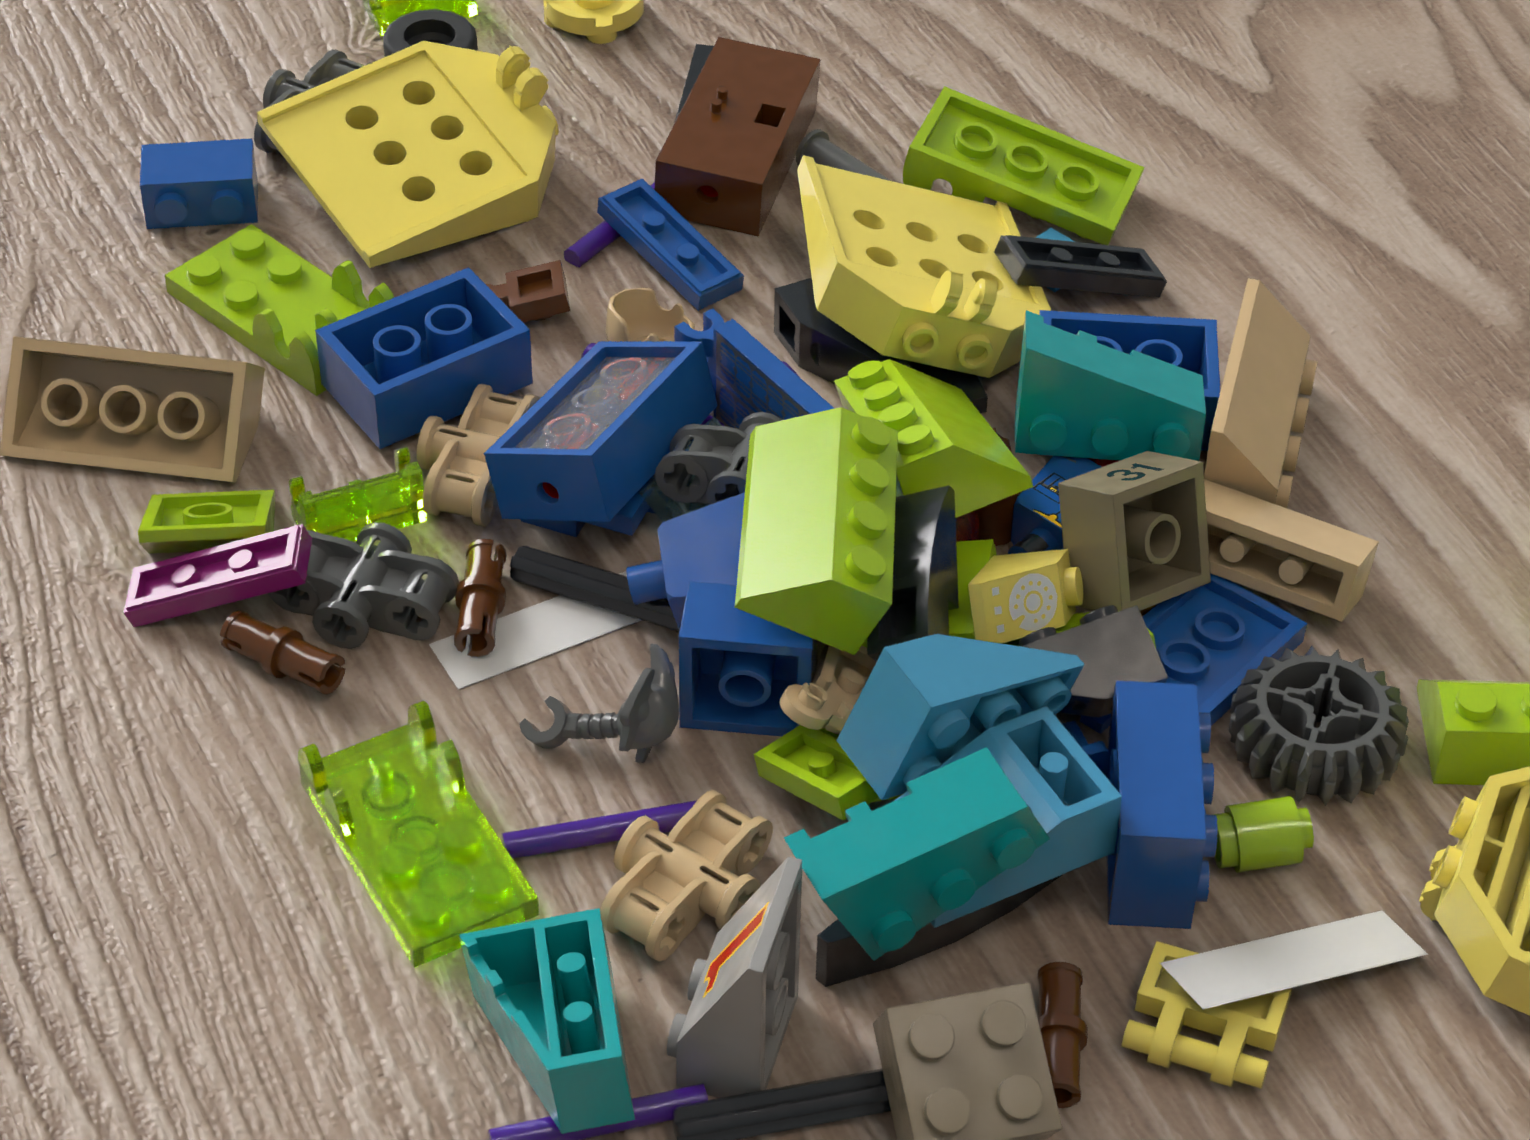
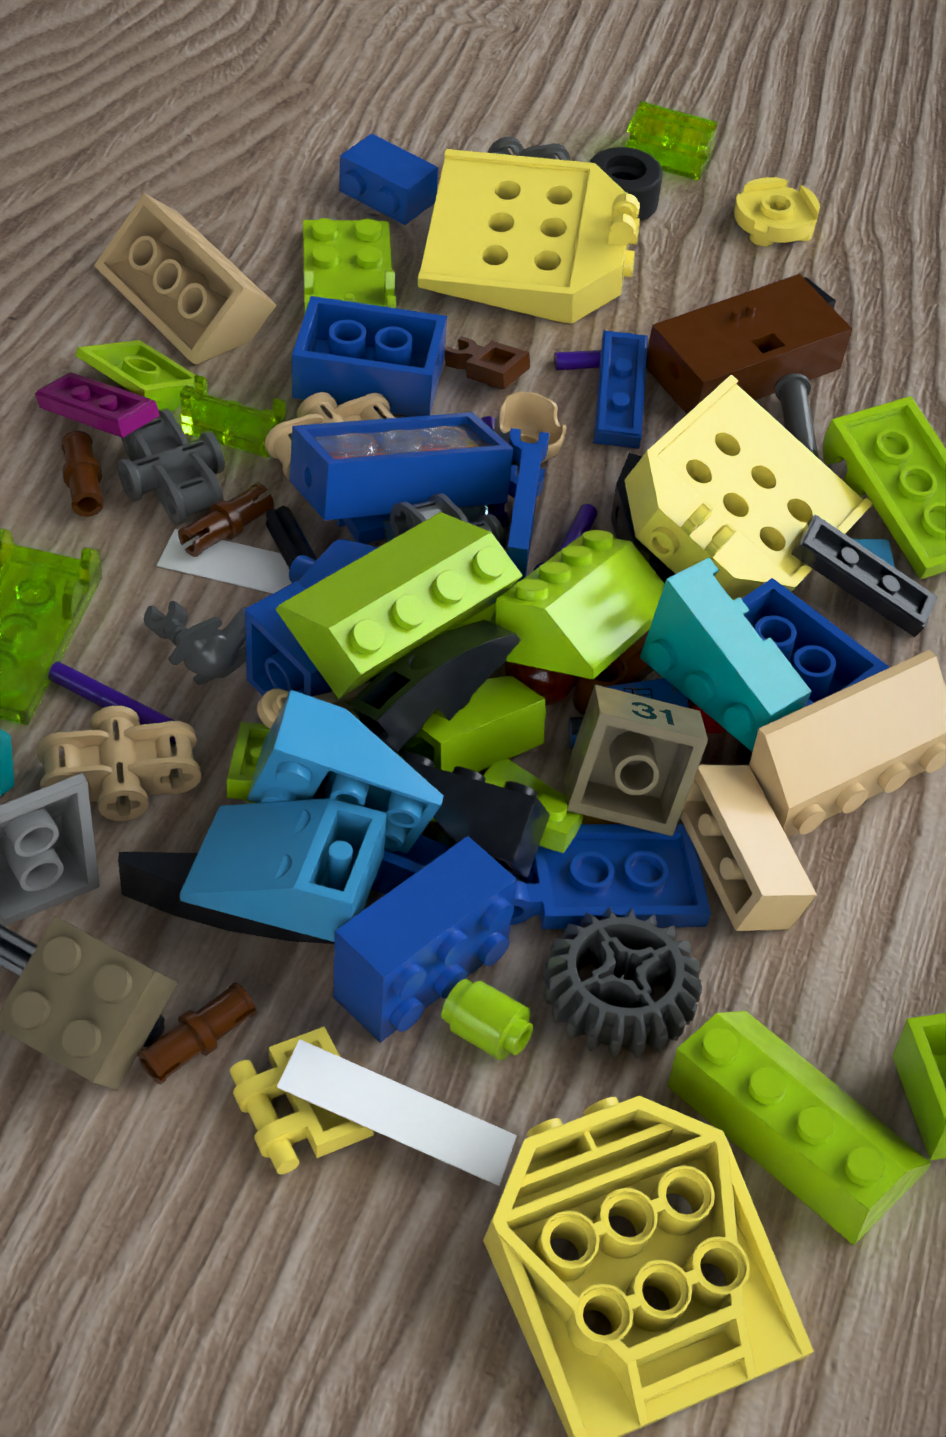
camera: 40 degrees right, 5 degrees up
(920, 853) = (187, 839): teal wedge -> none
(1024, 594) = (509, 745): light yellow slope -> none

